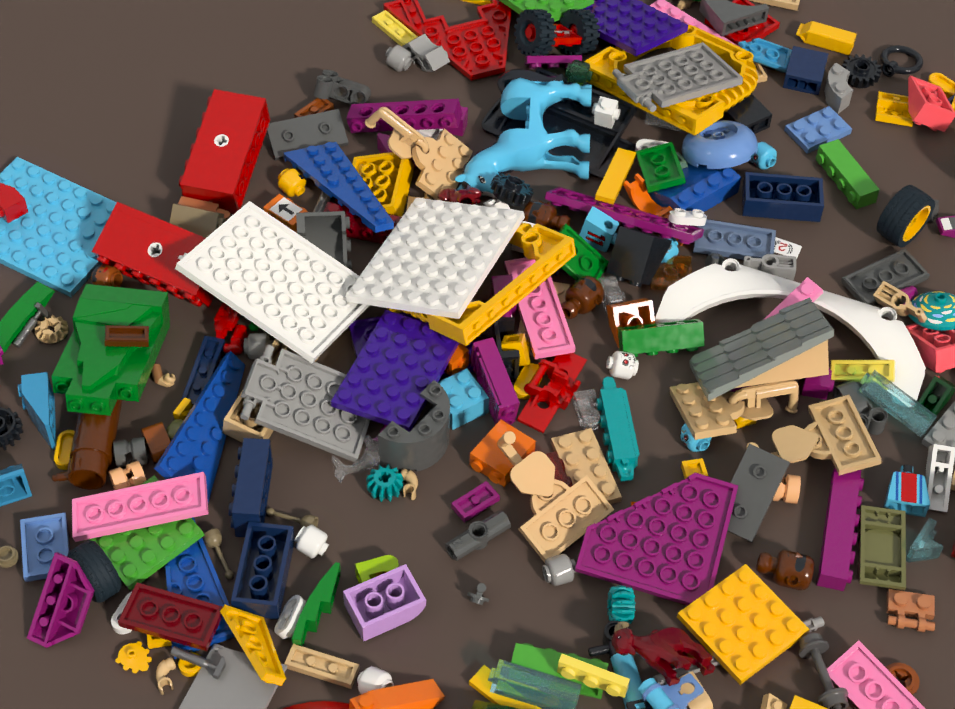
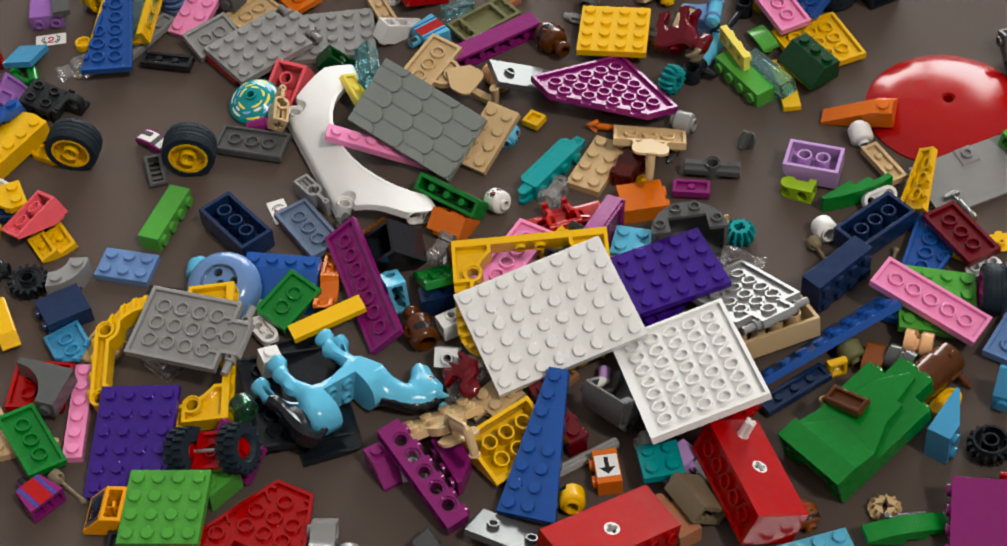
camera: 130 degrees left, 5 degrees down
(161, 672) = (990, 220): tan arm -> none
(511, 190) = (425, 344): black gear -> none
(682, 217) = (325, 249): white plate -> none

